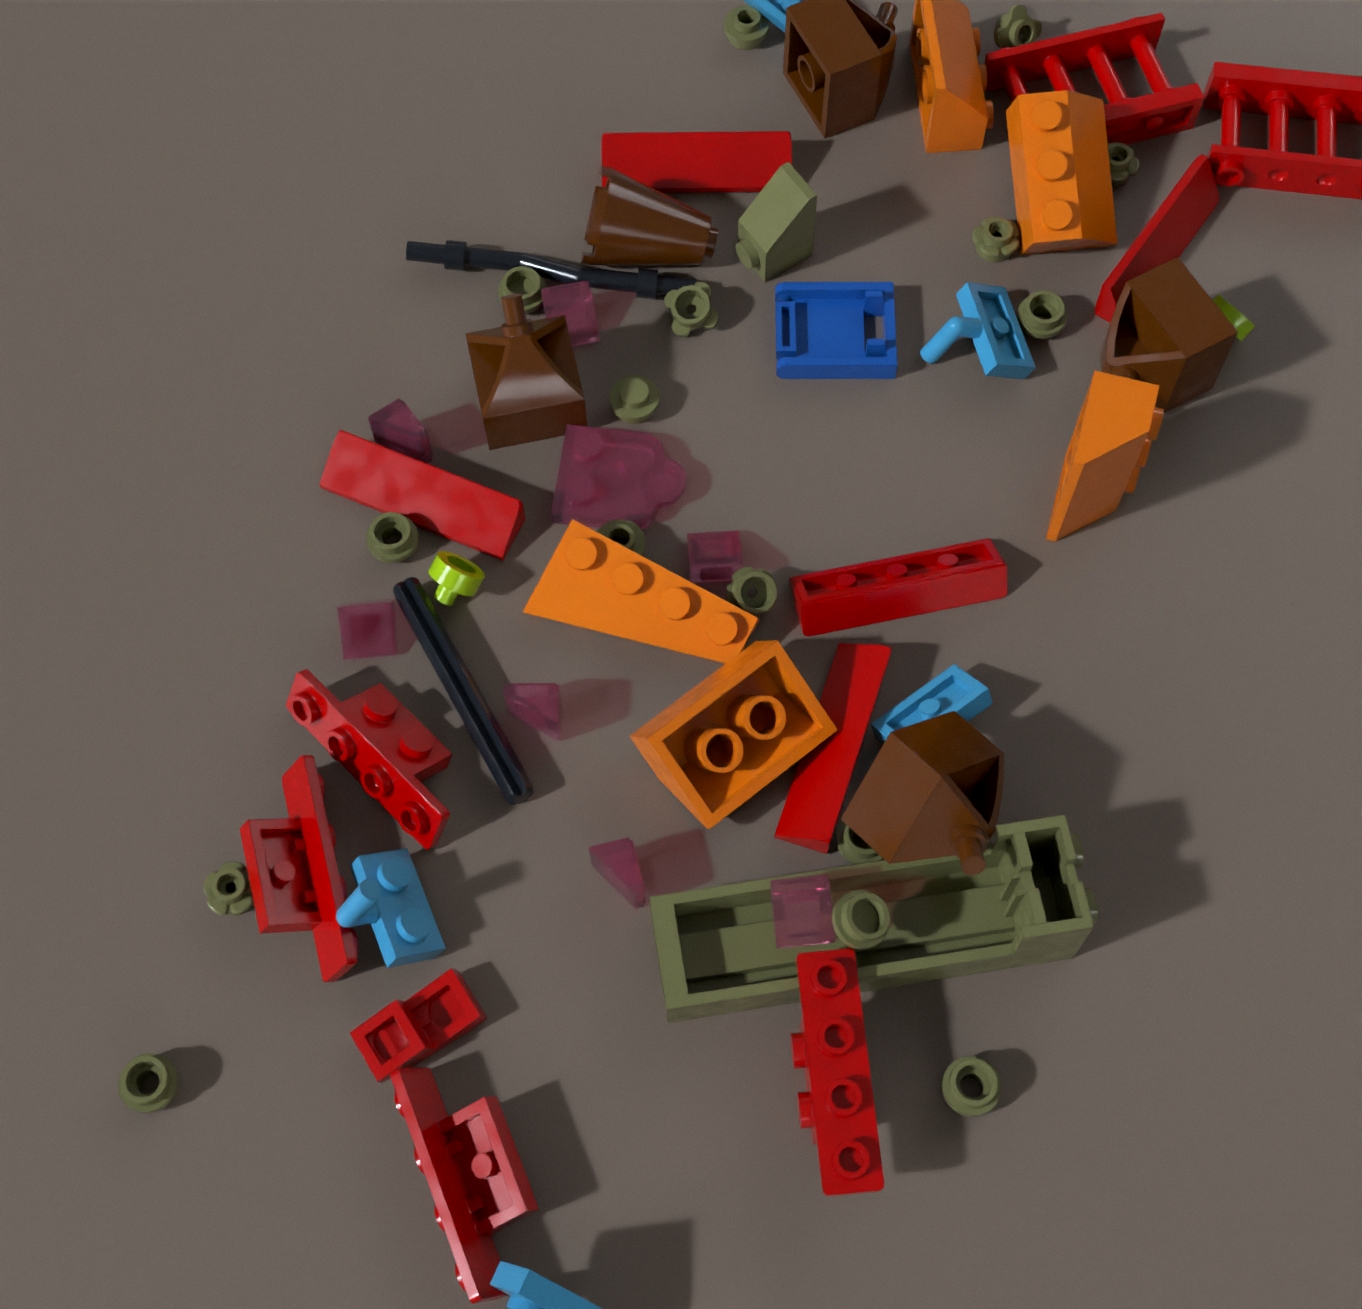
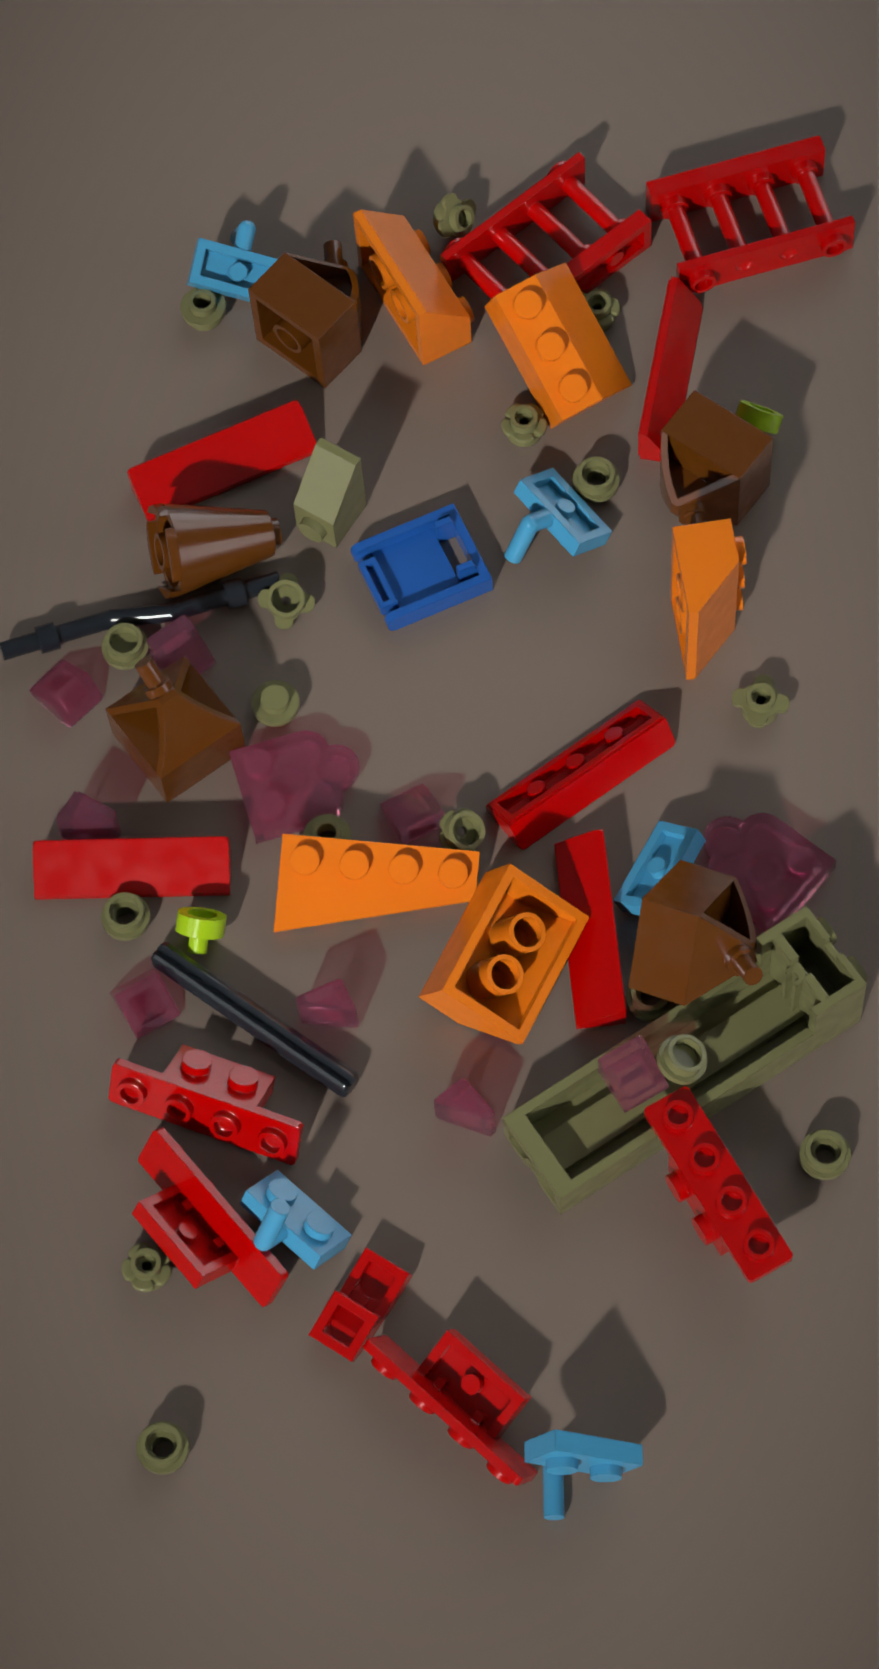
camera: 20 degrees left, 0 degrees up
(448, 312) = (67, 692): none -> clear pink slope
(1047, 755) = (771, 863): none -> clear pink plate
(1105, 602) = (760, 714): none -> olive plate

